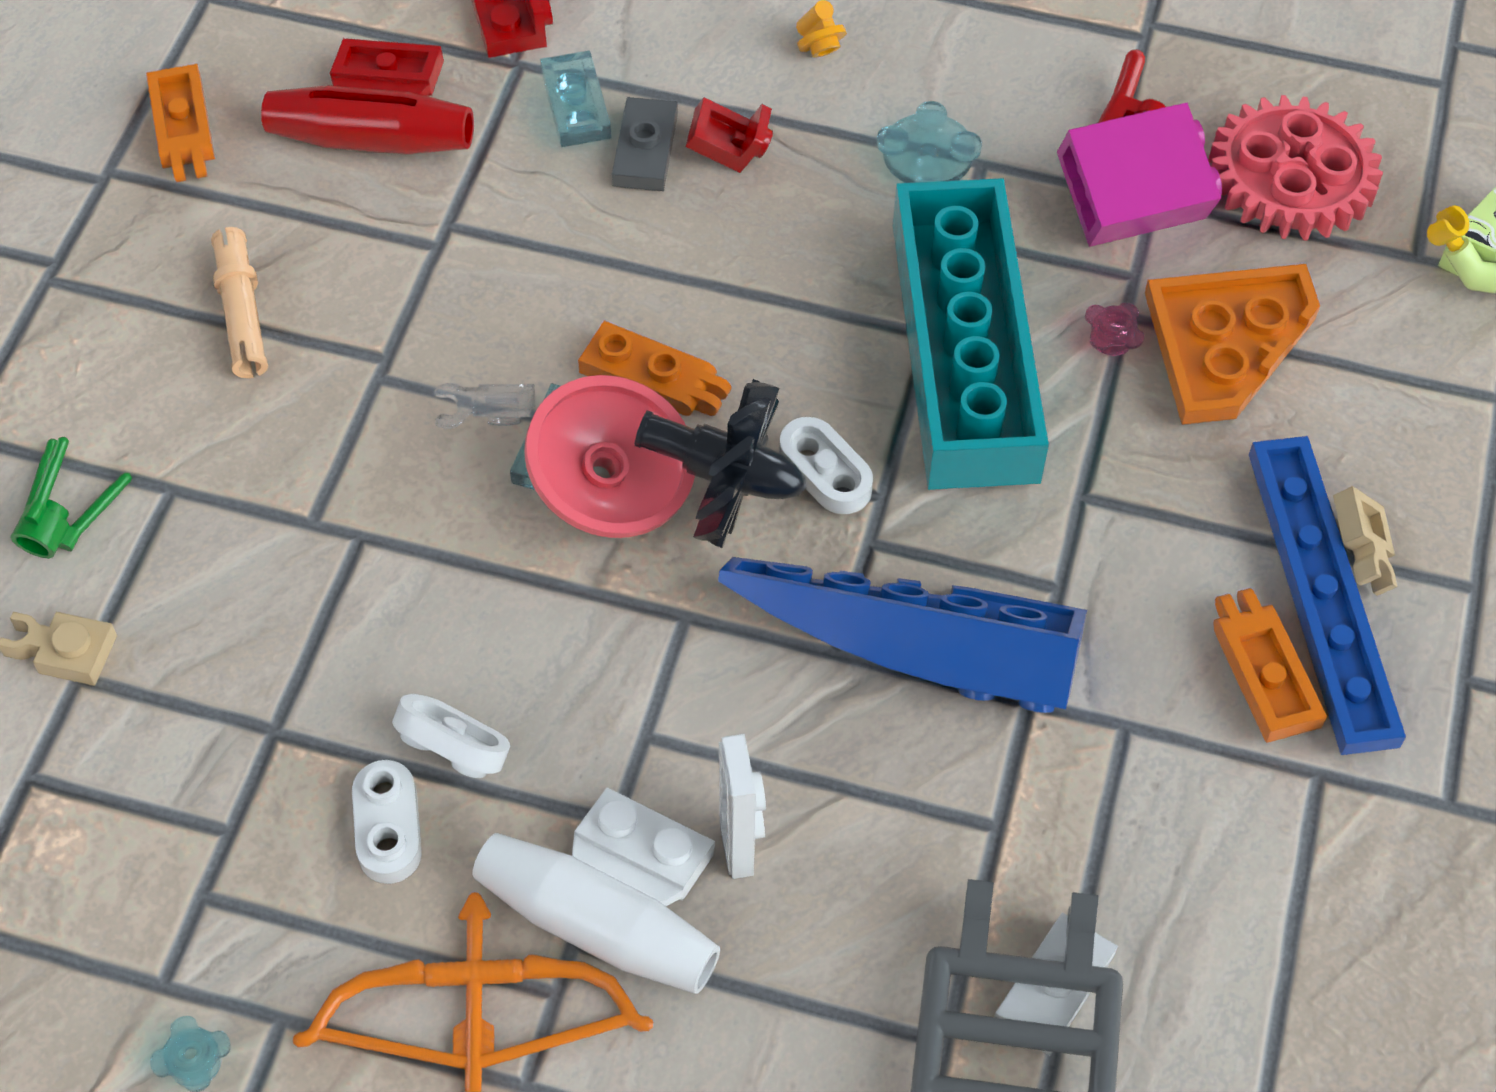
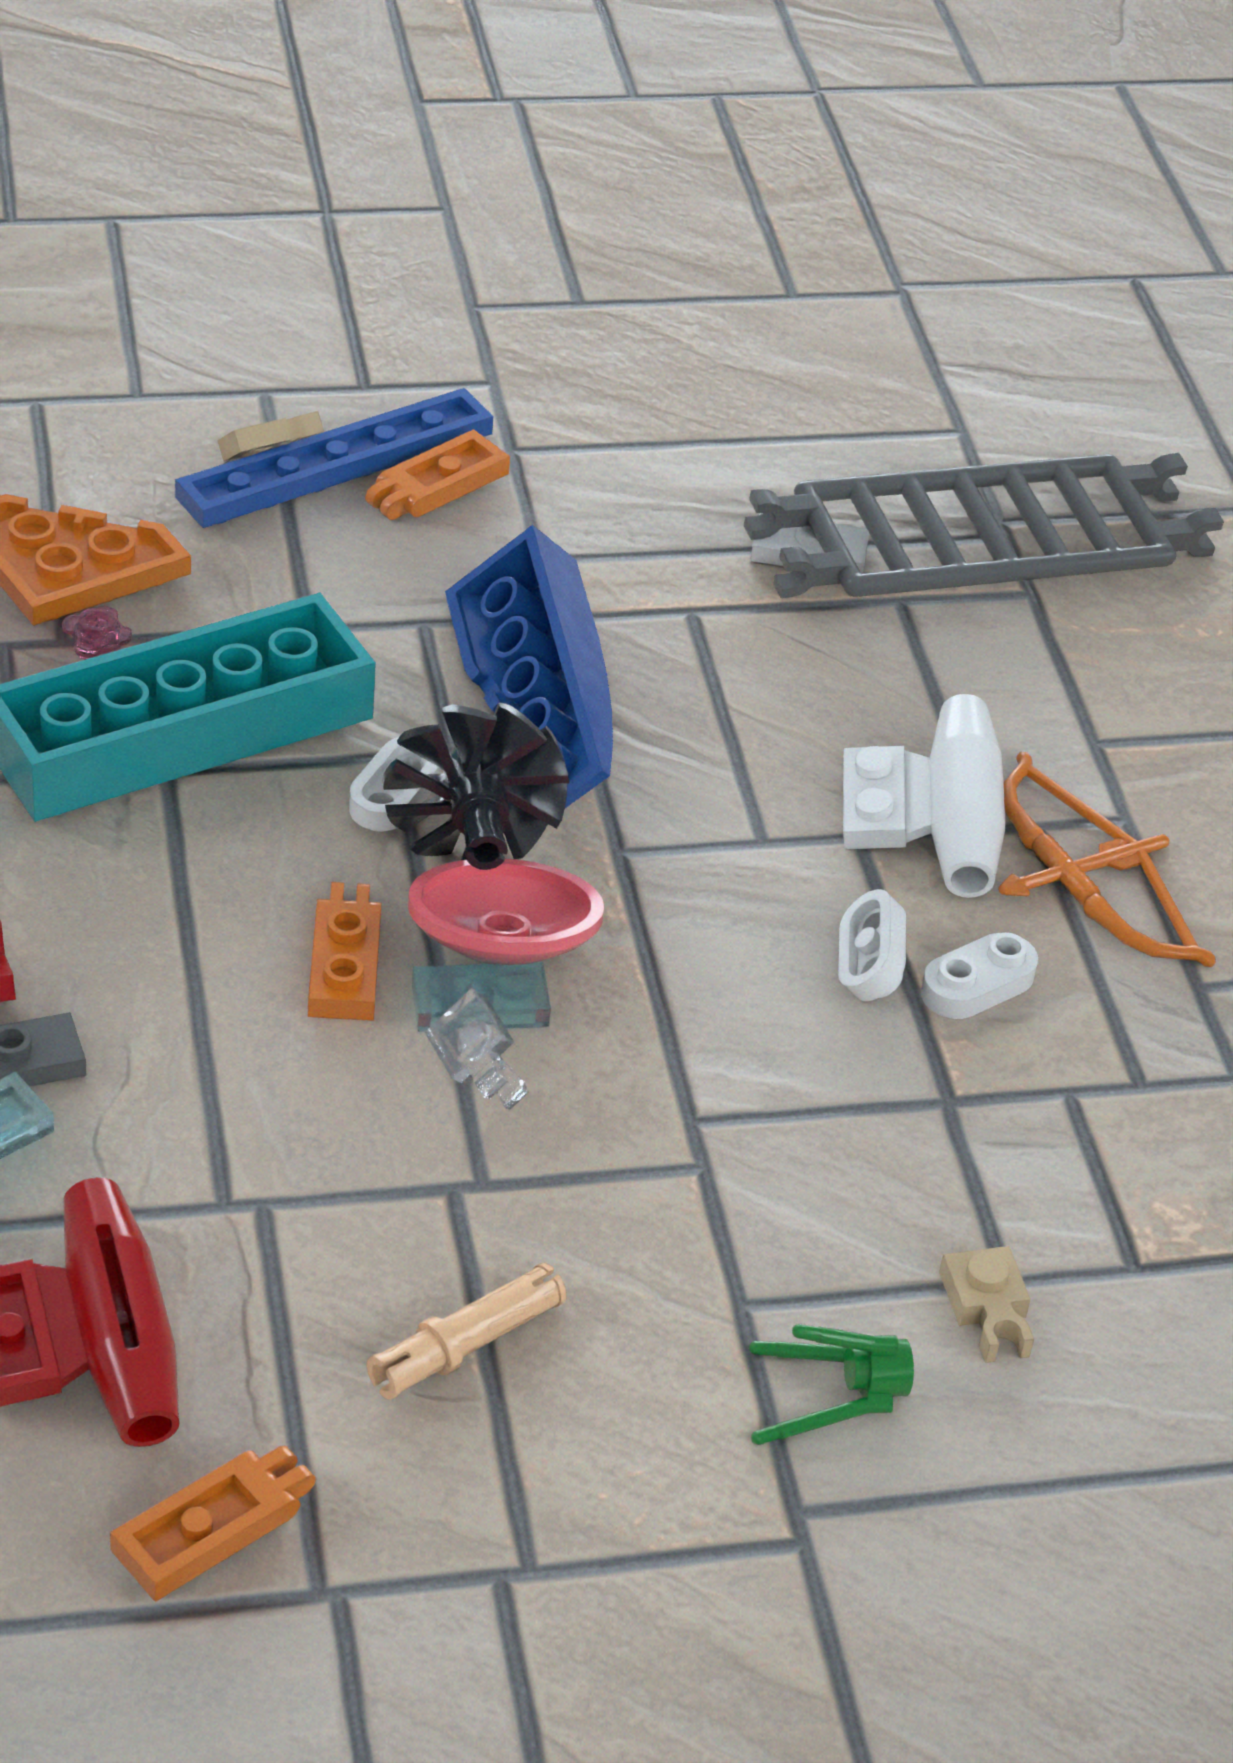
camera: 120 degrees left, 15 degrees down
(739, 806) = (837, 684): white plate -> none

